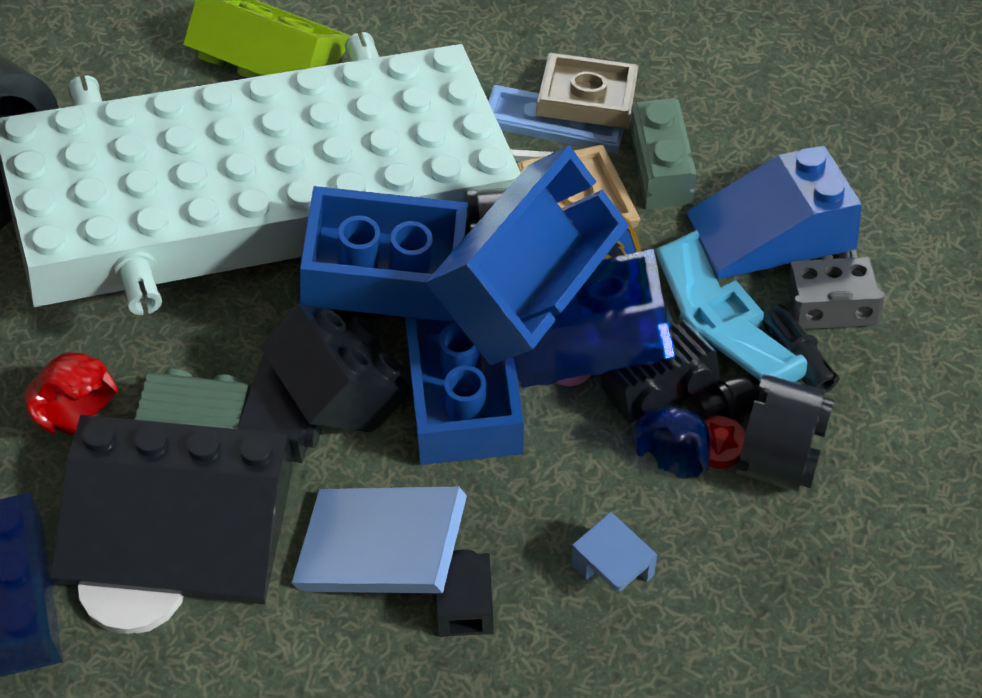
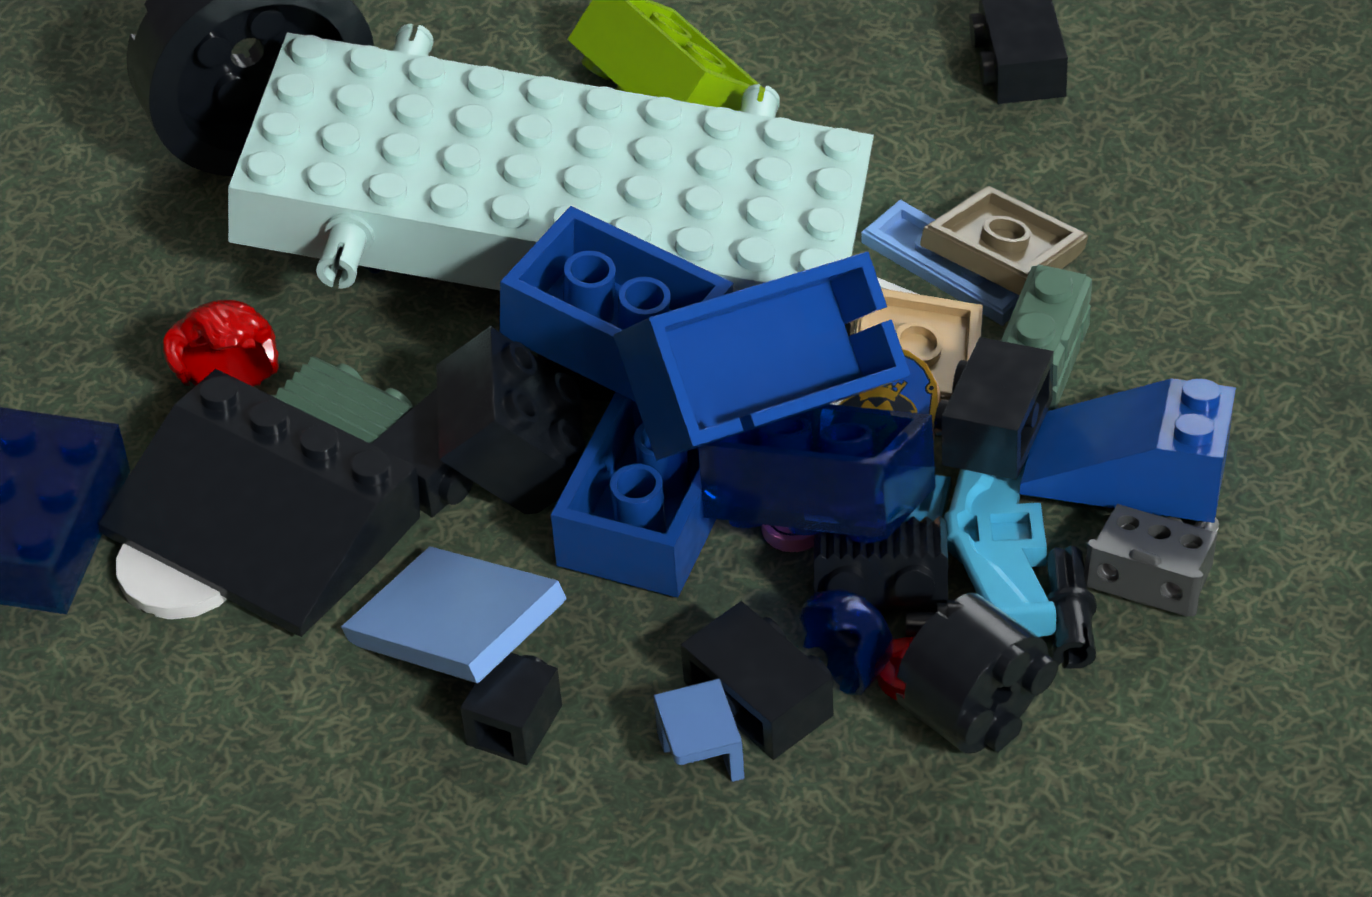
camera: 30 degrees right, 10 degrees down
(638, 493) = (767, 680): none -> black brick
(673, 220) = (995, 408): none -> black brick

